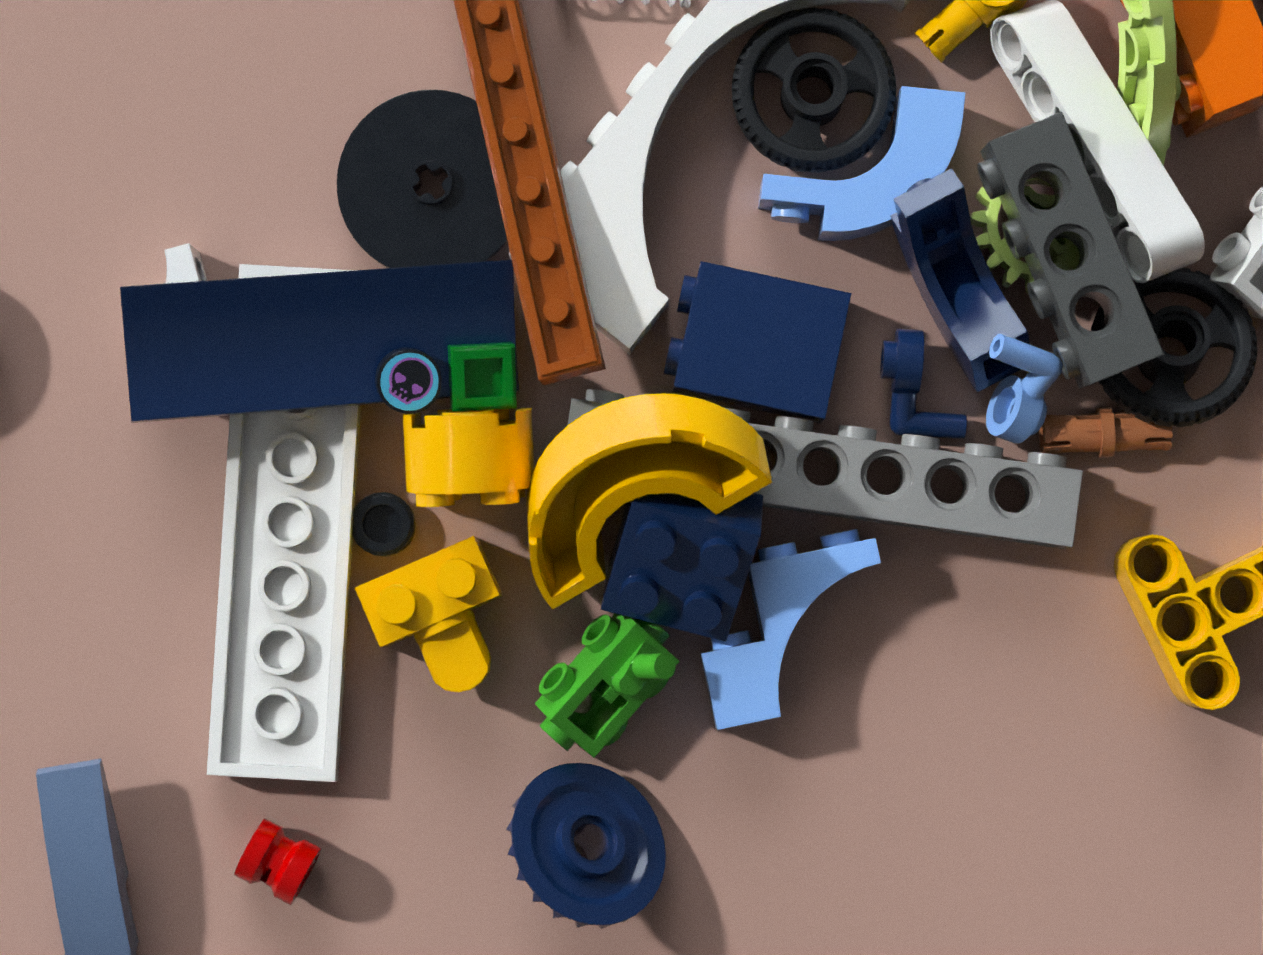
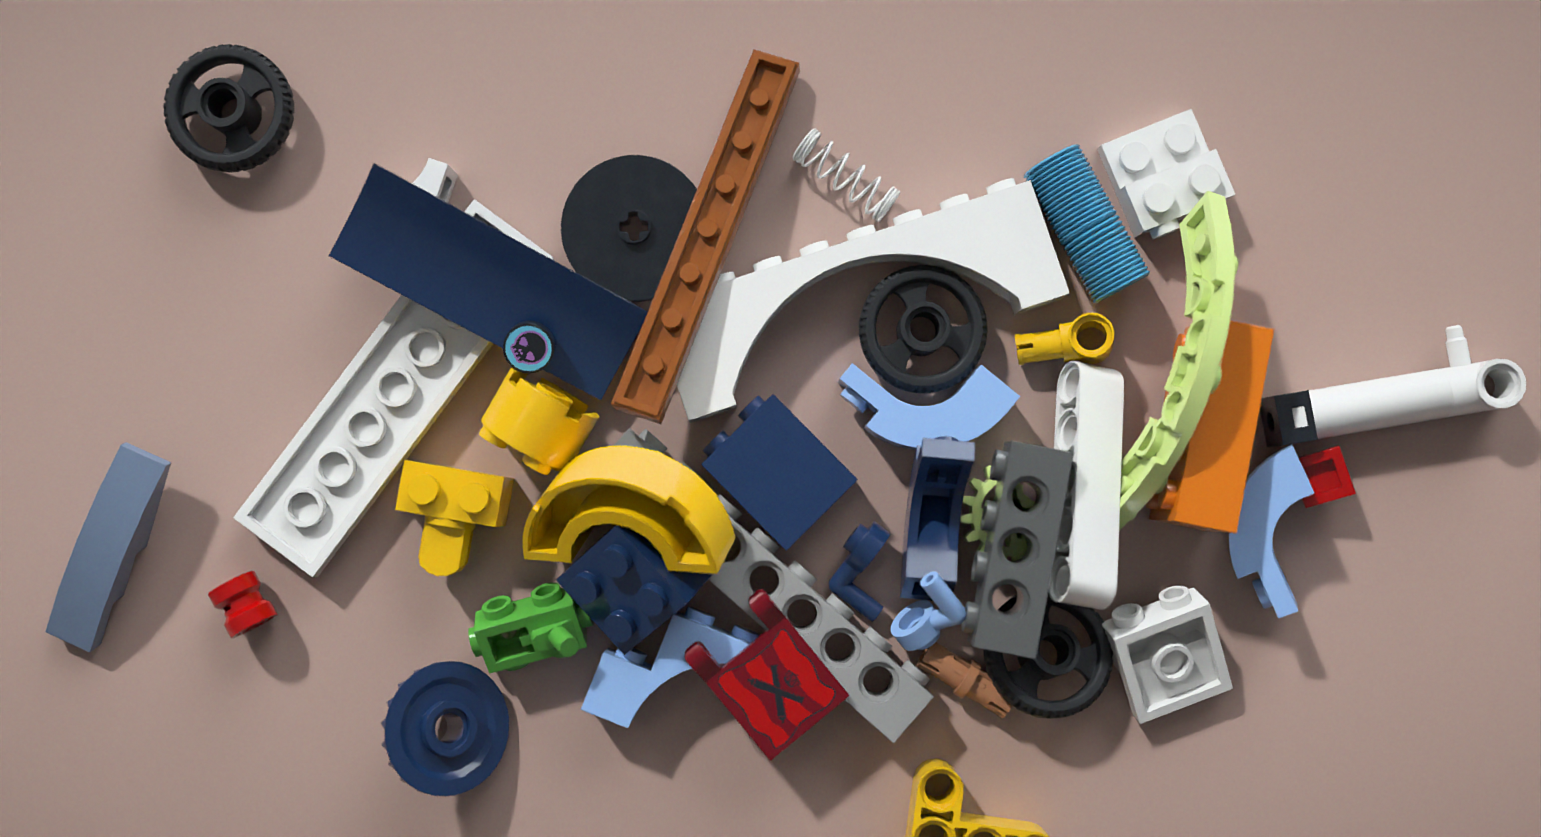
camera: 30 degrees right, 0 degrees up
(383, 524) = (457, 429): black tile -> none
(482, 376) = (580, 375): green tile -> none
(905, 566) = (774, 684): none -> flag

